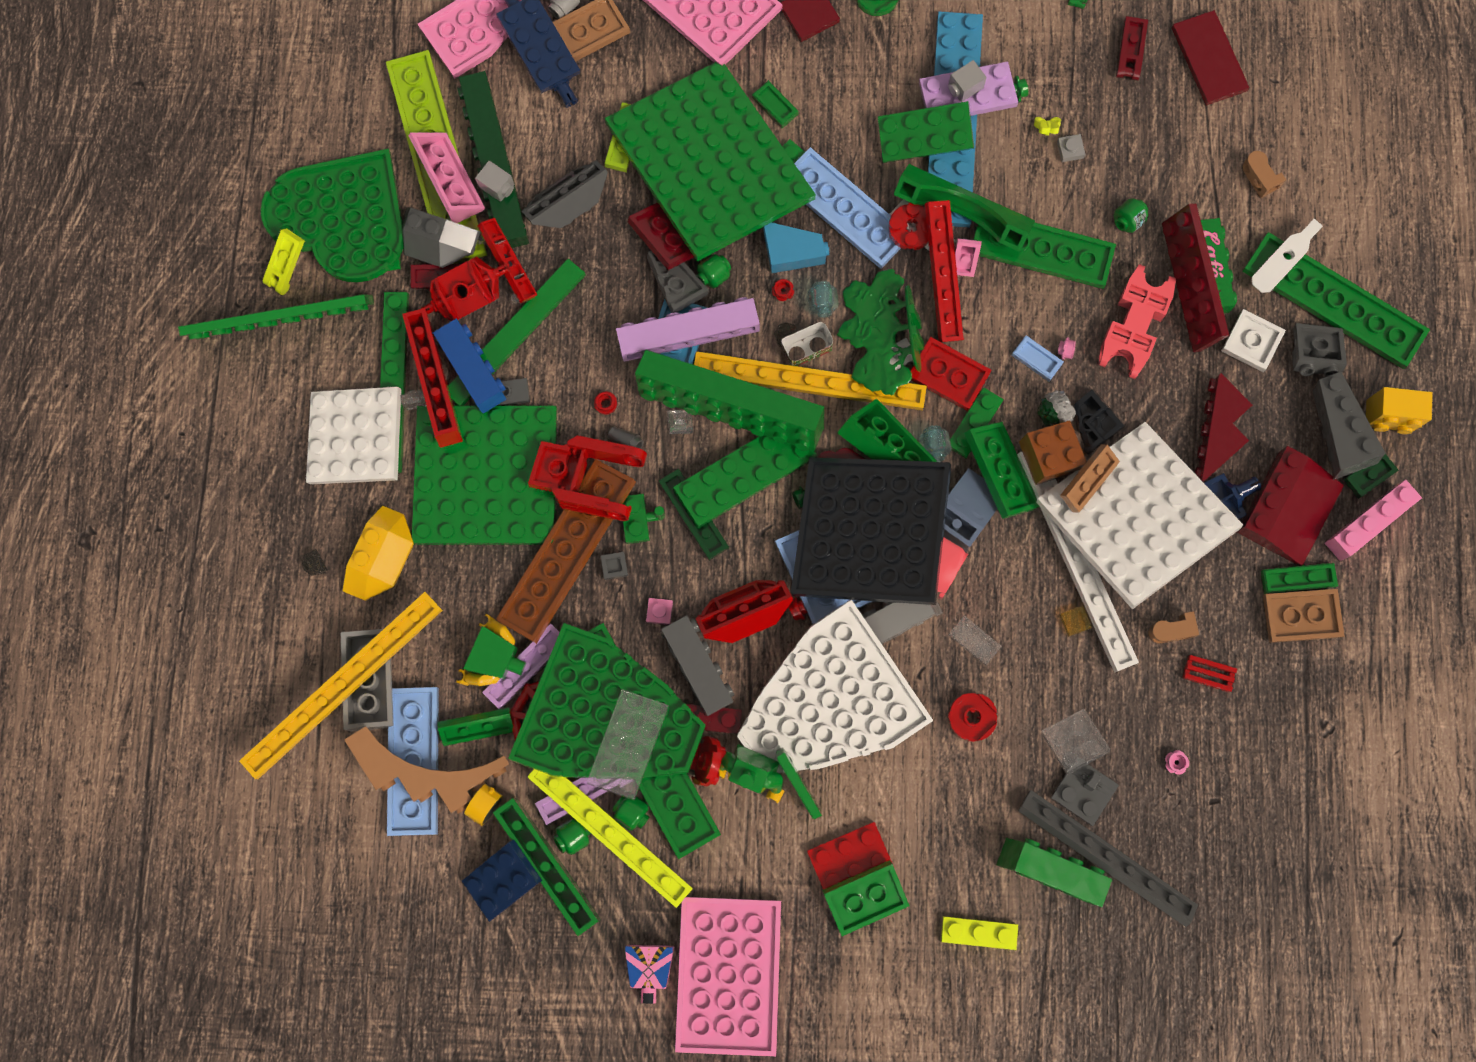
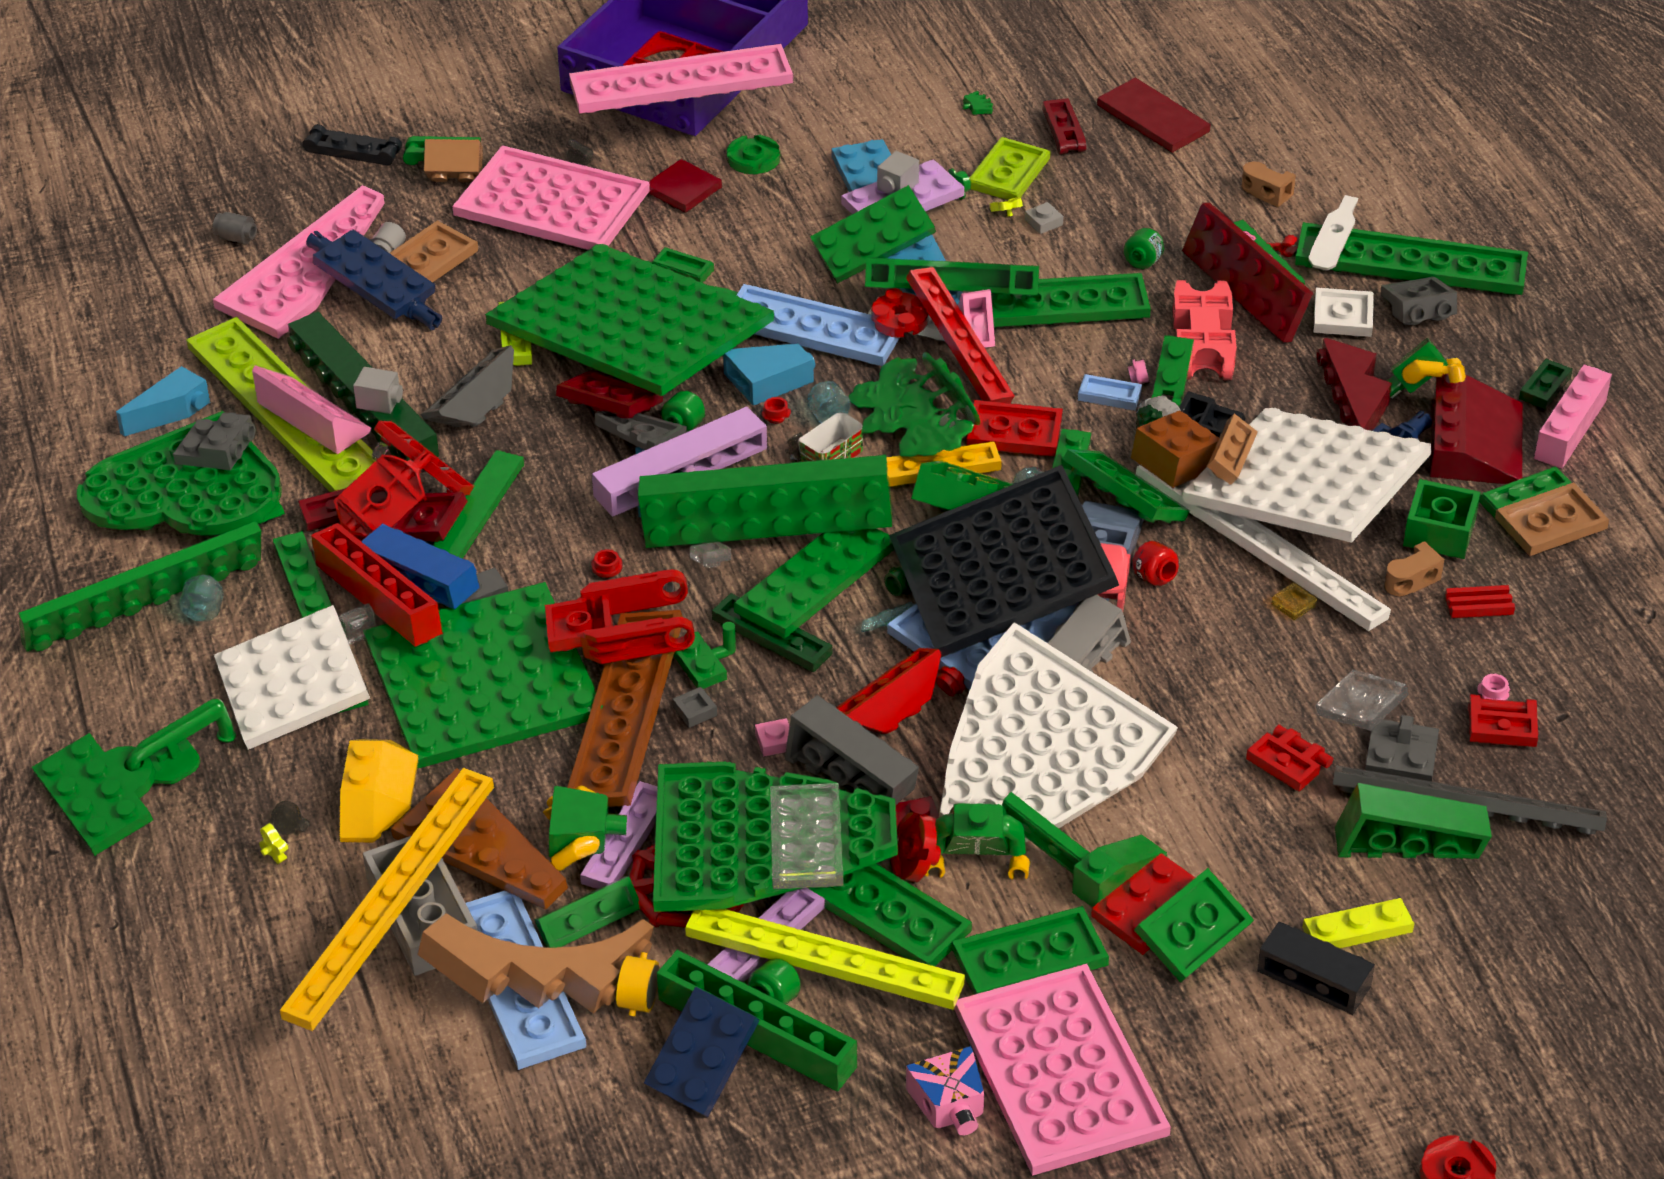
camera: 25 degrees left, 35 degrees down
(200, 483) = (104, 789): none -> green plate
(283, 261) = (129, 532): neon yellow plate -> none
(294, 586) = (273, 844): none -> neon yellow piece
(317, 335) = (201, 598): none -> clear light blue head
(355, 122) = (165, 402): none -> dark azure slope
(368, 188) = (216, 442): none -> dark grey plate
(434, 646) = (492, 851): none -> dark orange wing
(436, 238) = (322, 458): dark grey wedge -> none
(496, 317) = (434, 517): none -> dark red plate
(631, 813) = (843, 927): green head -> none
(749, 873) = (1029, 950): none -> green plate
(780, 526) = (884, 617): none -> clear light blue piece
(841, 822) = (1111, 866): none -> green slope
(932, 962) = (1315, 967): none -> black brick
(972, 731) = (1227, 734): red plate -> none
(975, 640) = (1184, 648): clear plate -> none
(990, 552) = (1155, 563): none -> red head
(995, 772) = (1289, 757): none -> red plate
(1067, 81) = (1009, 169): none -> lime tile
(1088, 366) = (1173, 368): none -> green plate
(1164, 800) = (1503, 721): none -> red plate
(1218, 592) = (1442, 518): none -> green brick
(1243, 250) = (1286, 248): none -> red hand
(1281, 435) = (1421, 365): none -> torso
(1345, 427) = (1491, 345): dark grey wedge -> none
(1399, 410) = (1537, 315): yellow brick -> none

